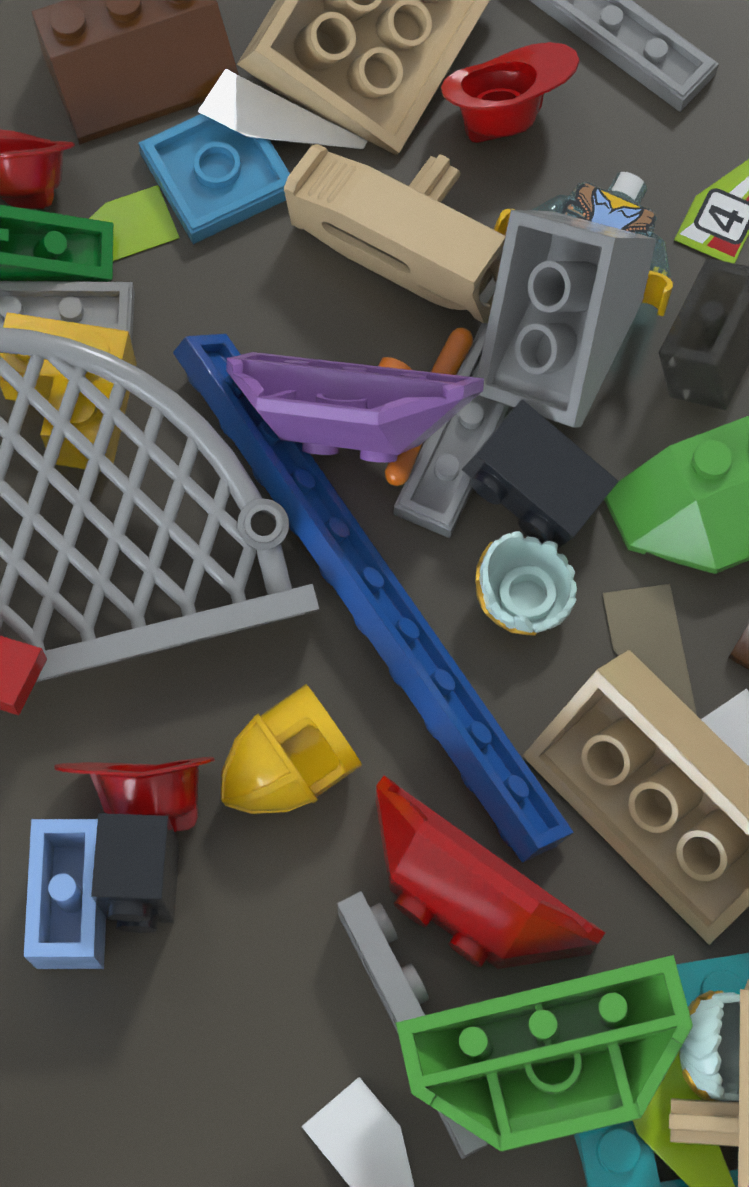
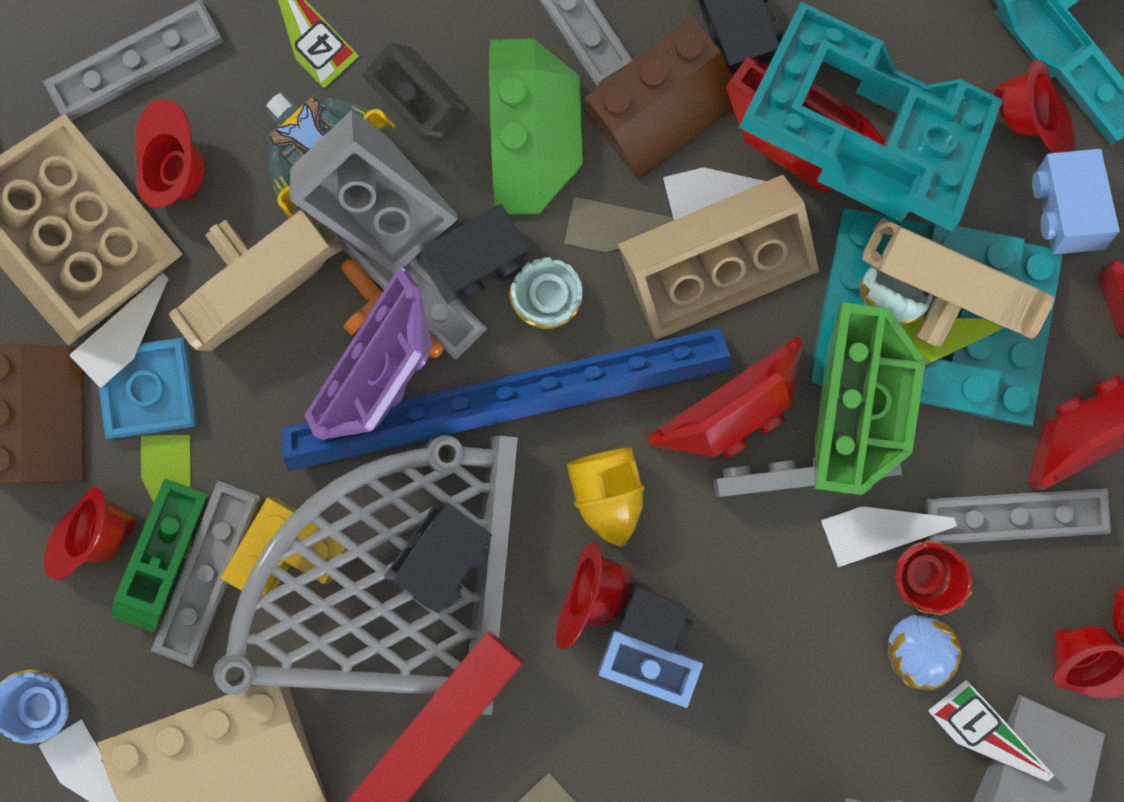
camera: 70 degrees left, 15 degrees up
(121, 554) = (439, 557): none -> black brick

